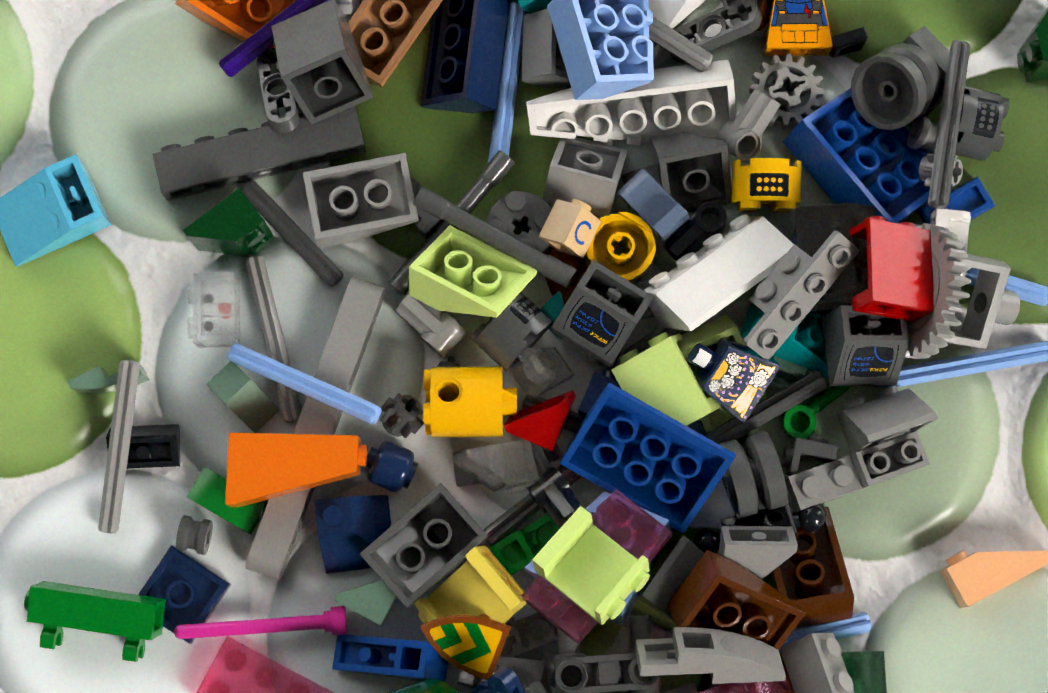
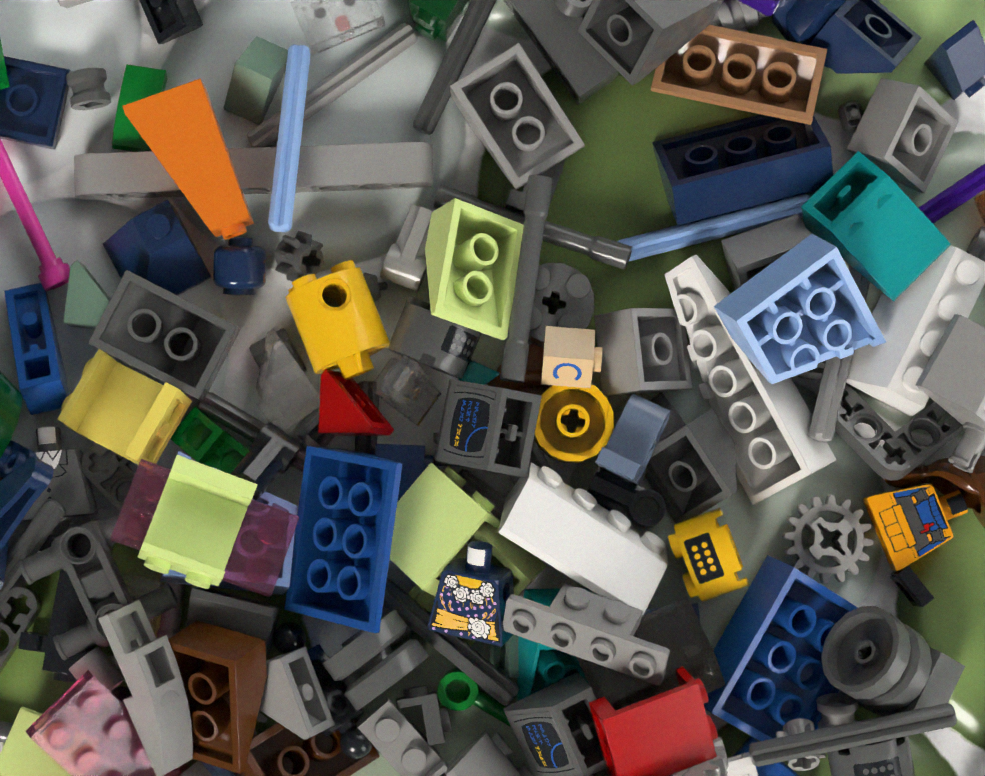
camera: 65 degrees right, 5 degrees up
(468, 642) = (75, 422): shield -> none
(745, 132) = (756, 508): light grey piece -> none

